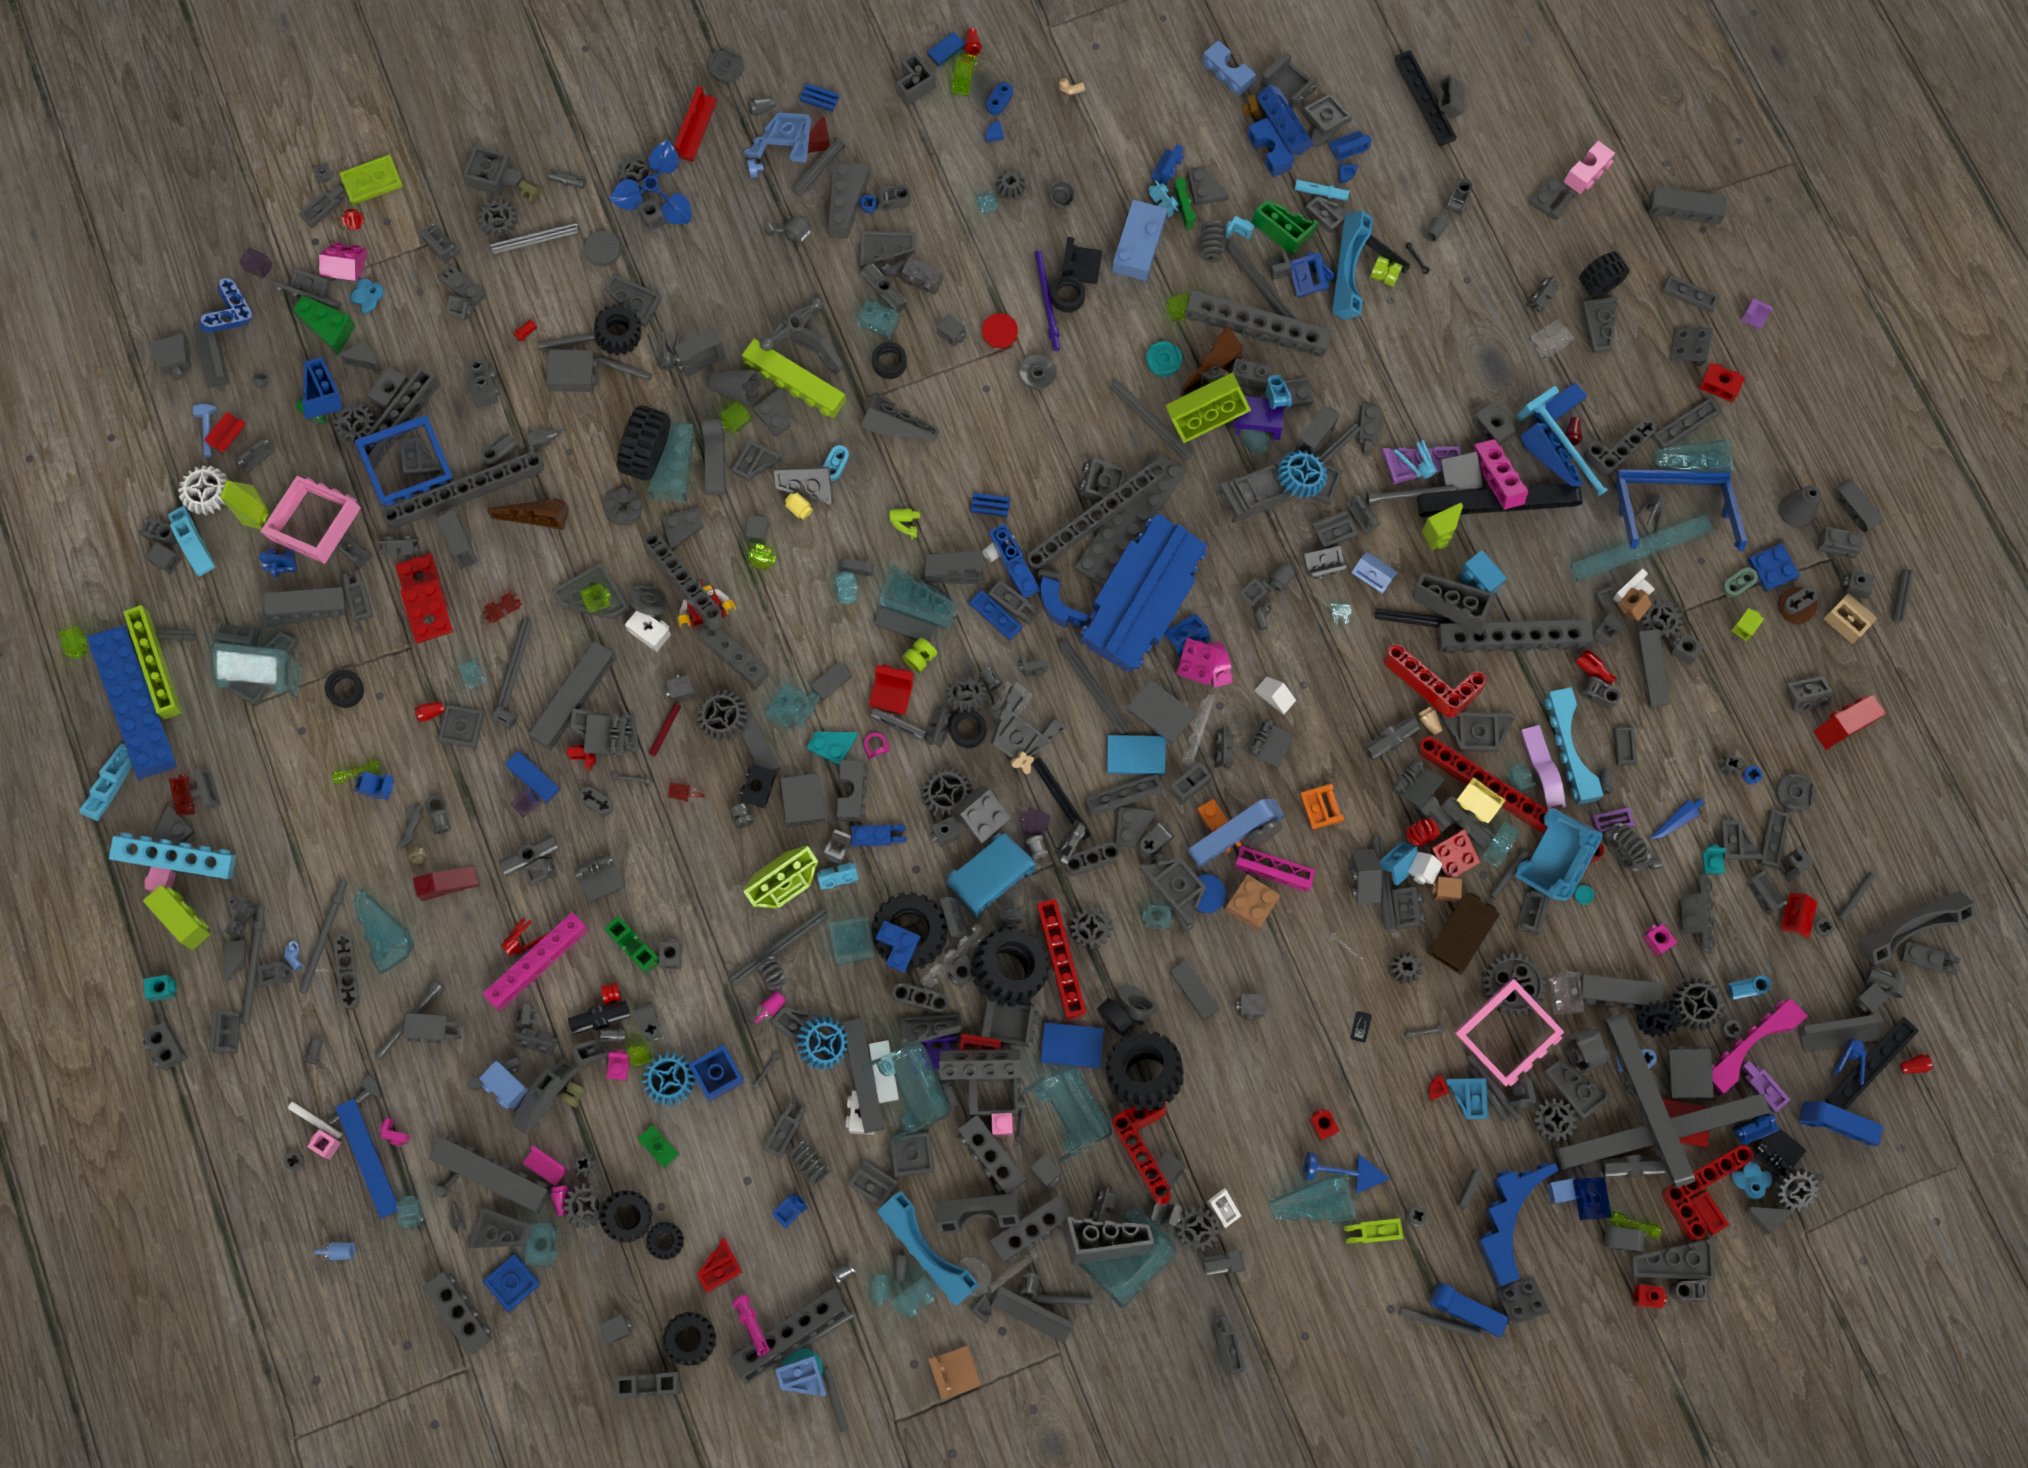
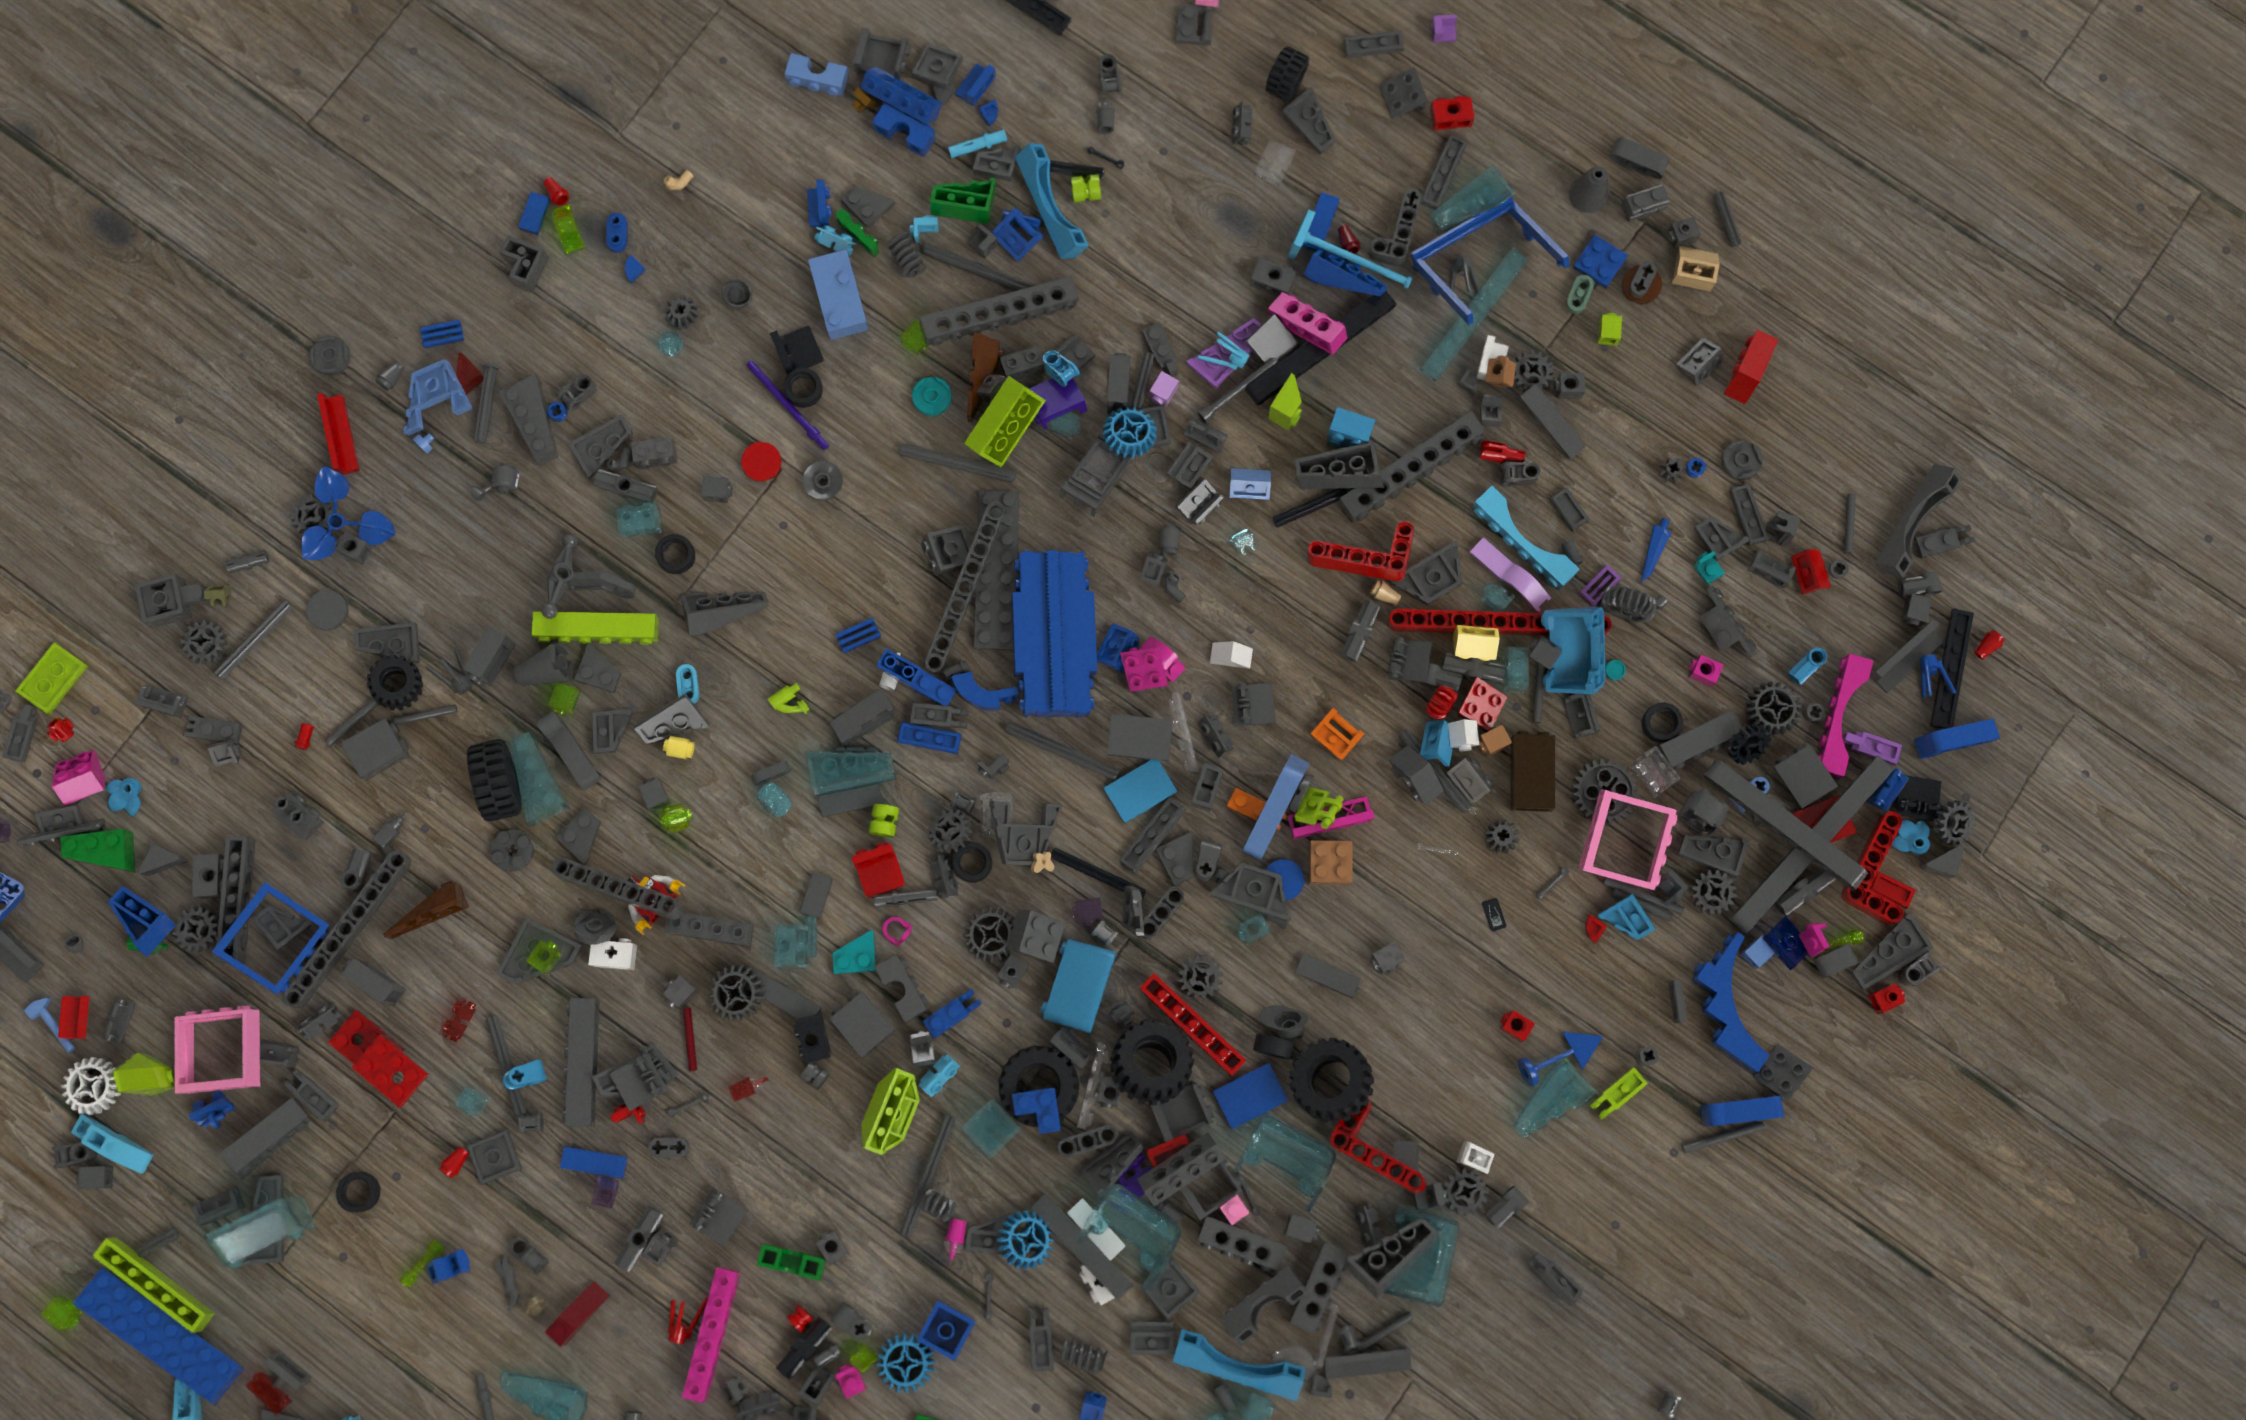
camera: 30 degrees left, 5 degrees up
(526, 679) = (527, 1074): none -> dark azure piece
(1266, 851) = (1313, 805): none -> lime plate
(1351, 459) = (1163, 389): none -> lavender brick
(1533, 842) = (1544, 651): none -> dark grey brick
(1607, 948) = (1673, 711): none -> black tyre
(1616, 1209) = (1814, 939): none -> dark pink bracket

